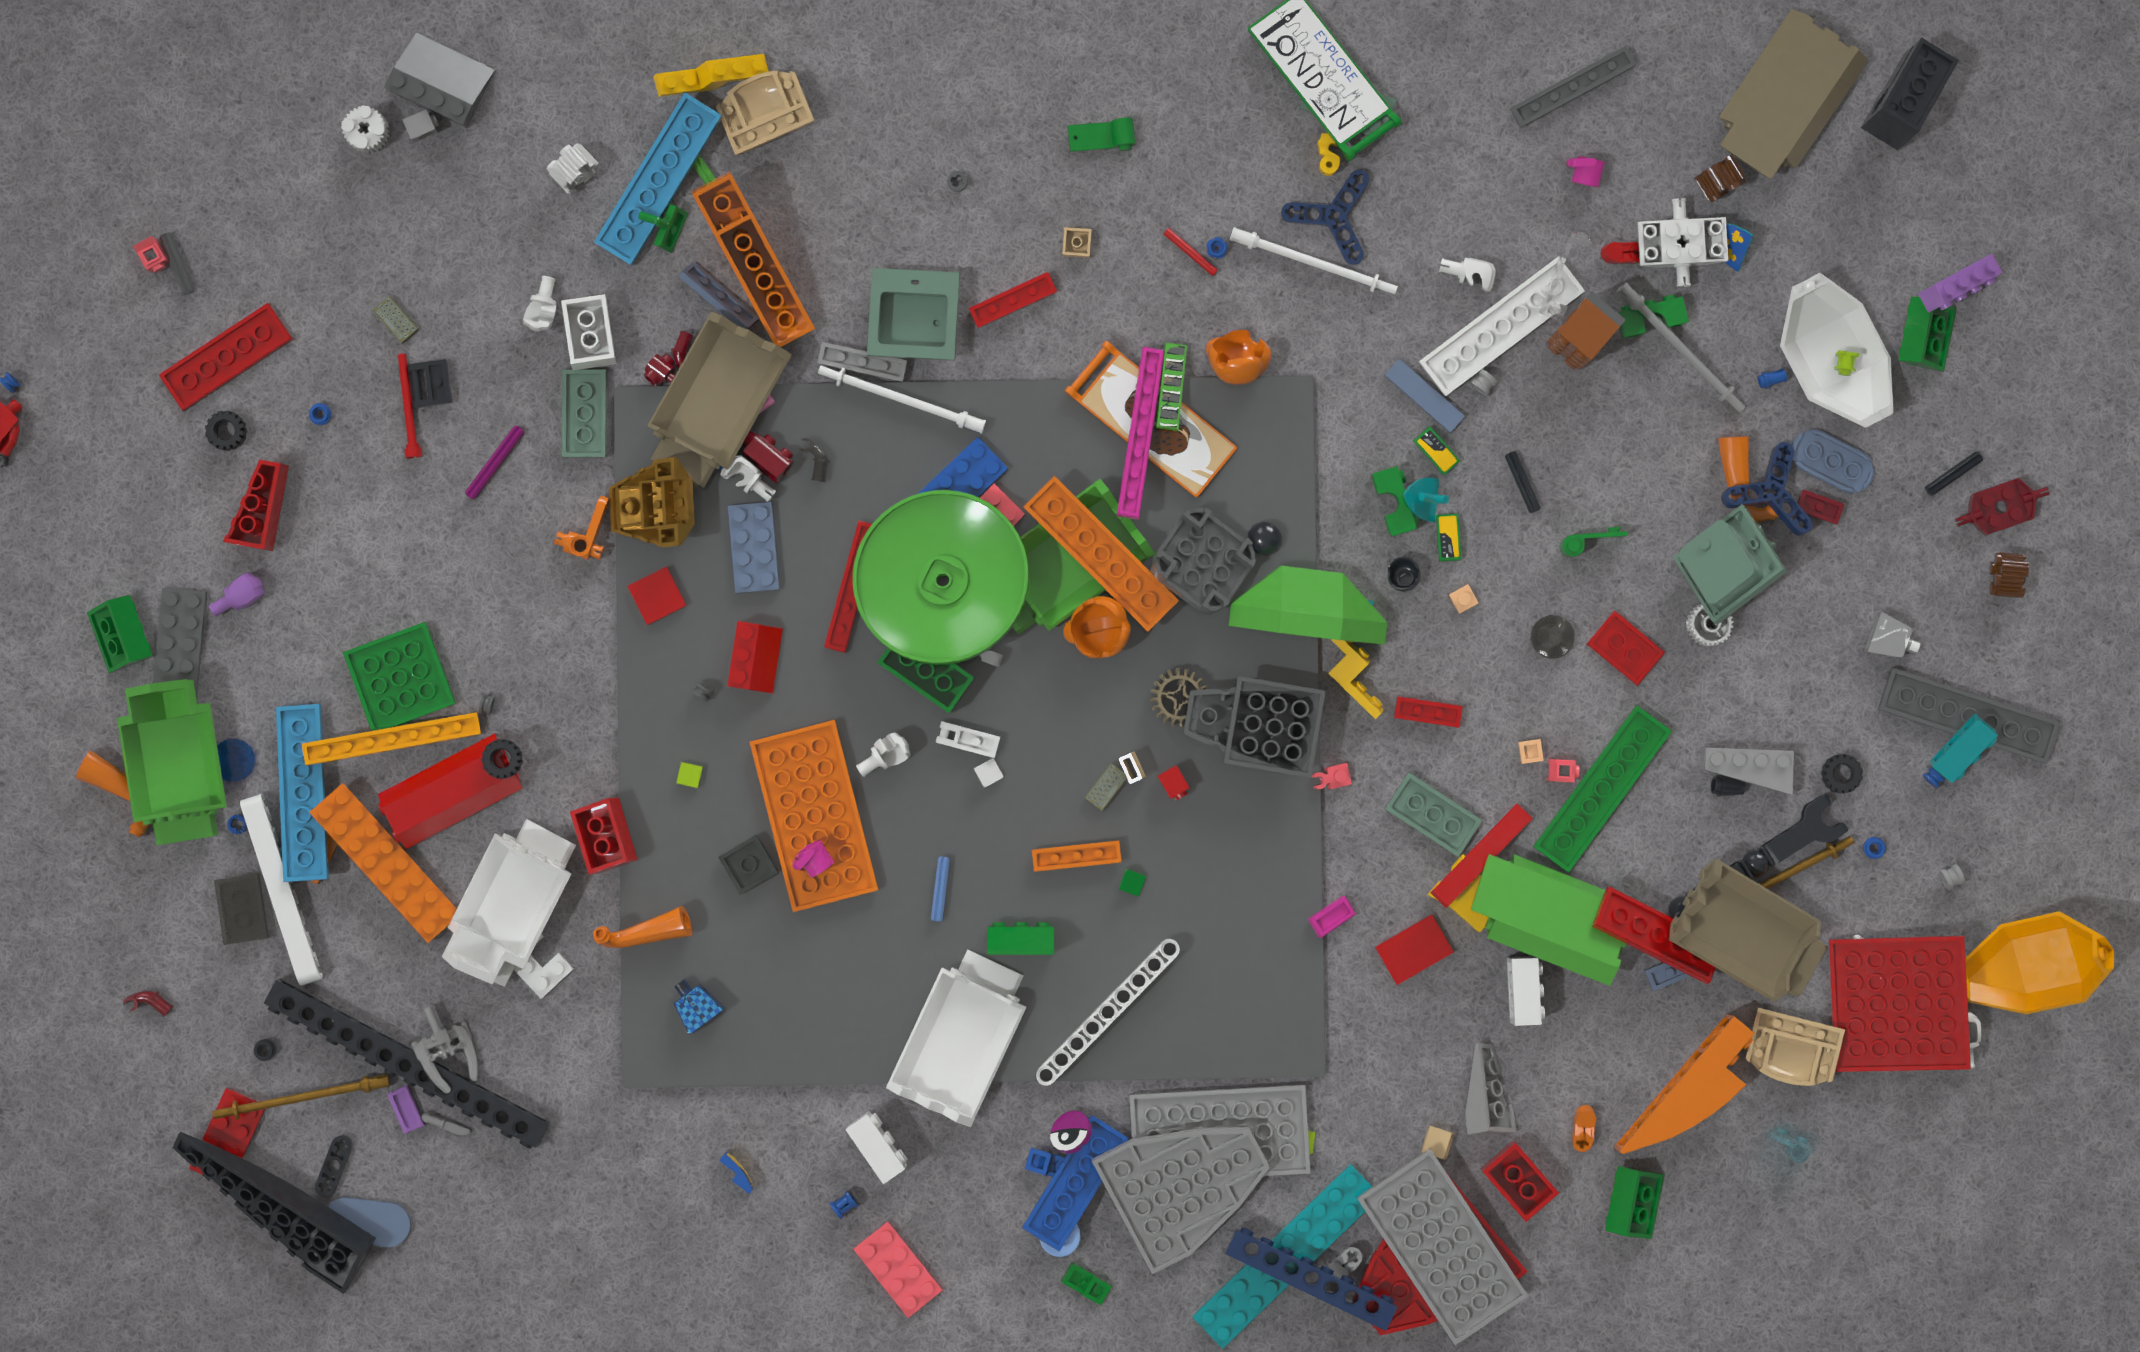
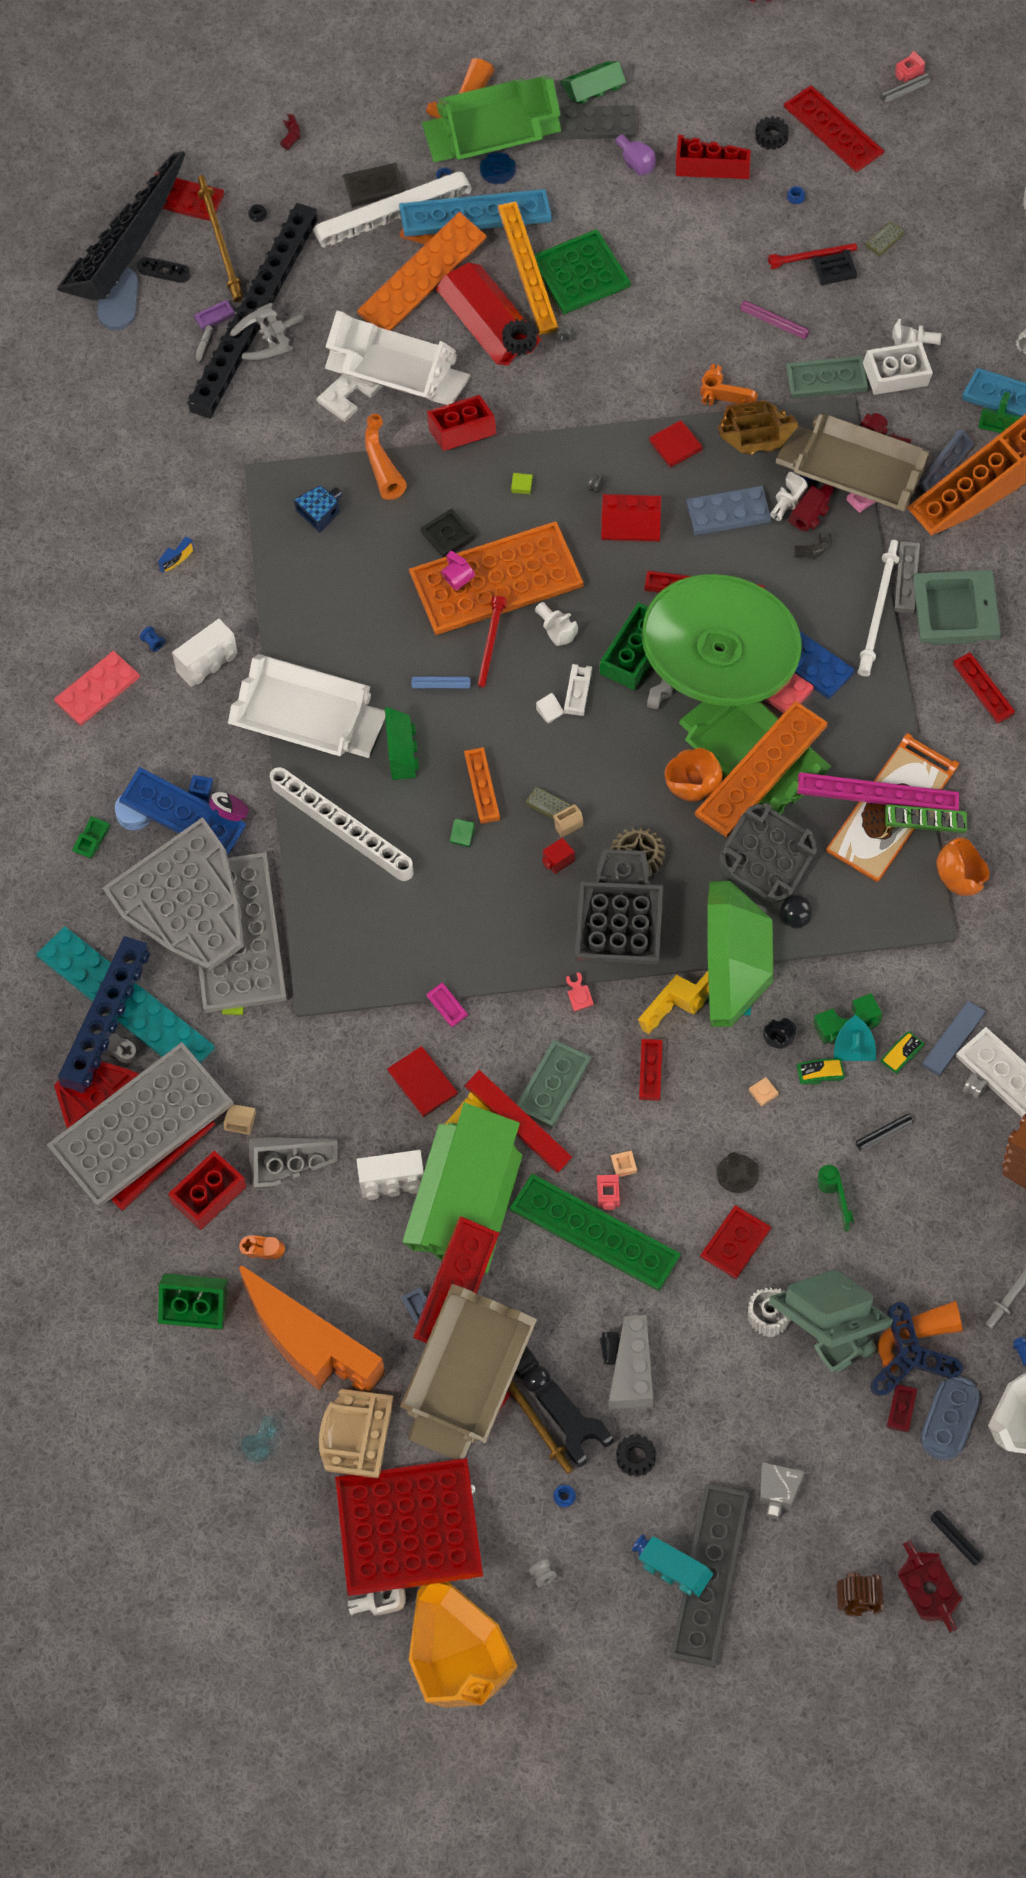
camera: 85 degrees right, 25 degrees down
(857, 817) = (498, 604): none -> red piece

